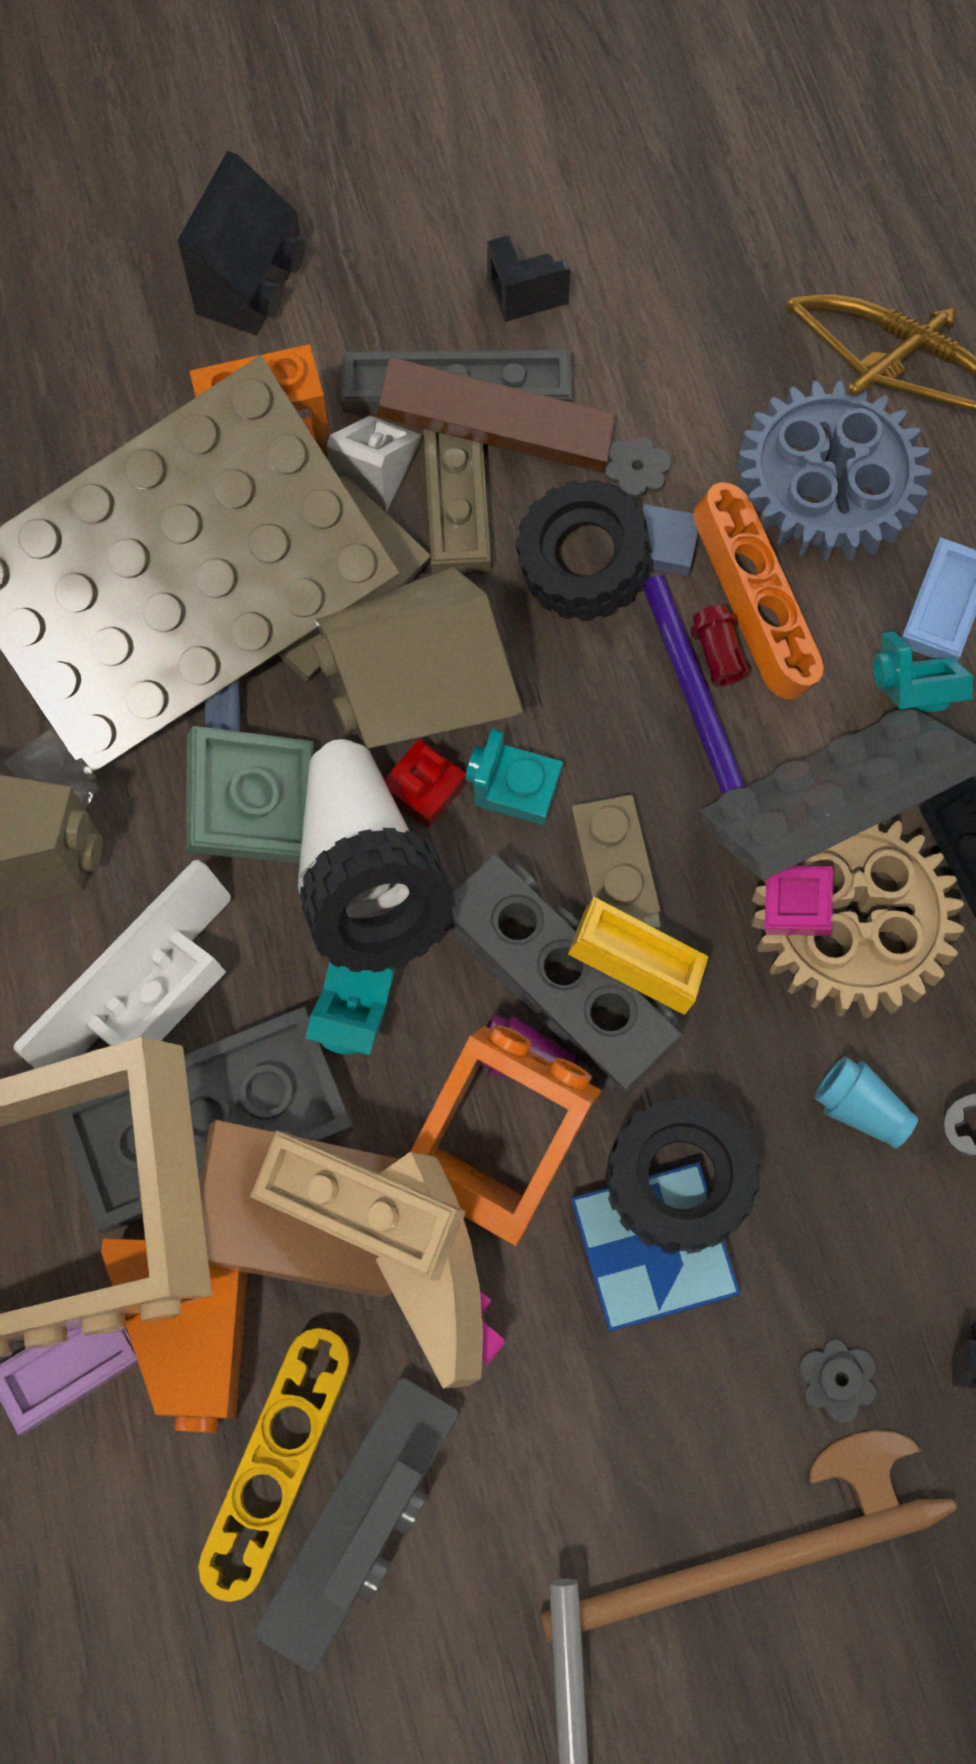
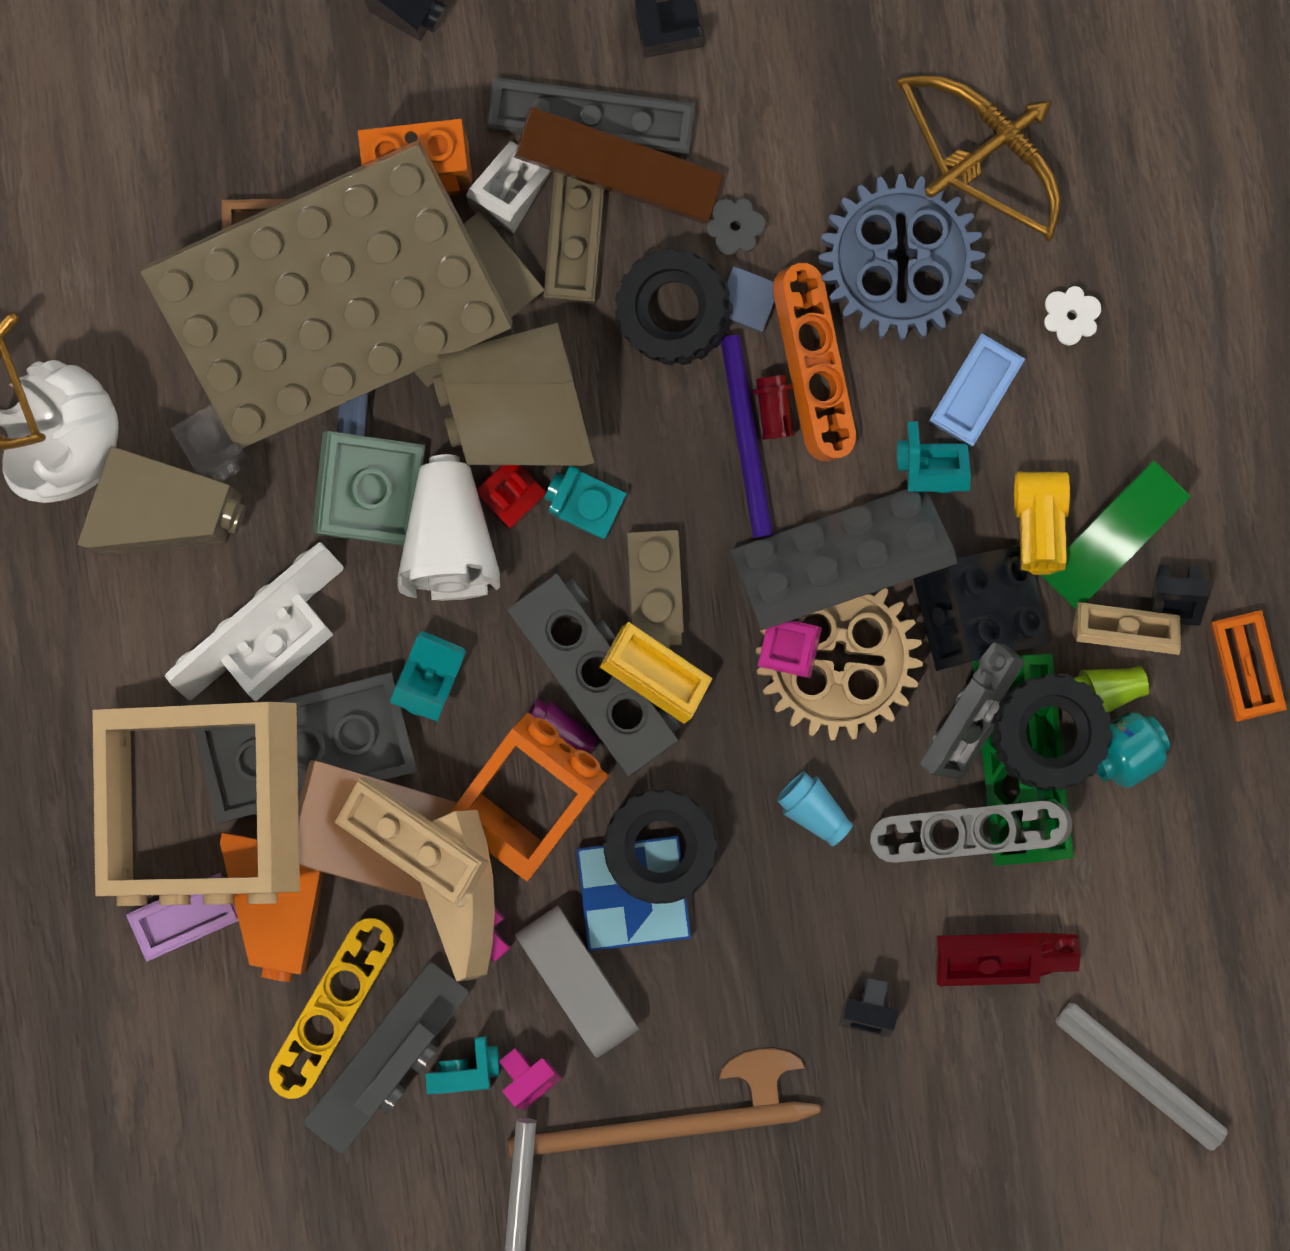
camera: 15 degrees right, 15 degrees up
(368, 862) = (454, 584): black tyre -> none
(457, 1534) = (457, 1077): none -> teal bracket
(559, 1523) = (529, 1080): none -> dark pink tile
(602, 1376) = (577, 981): none -> light grey beam
(820, 1371) = (755, 1025): dark grey plant -> none

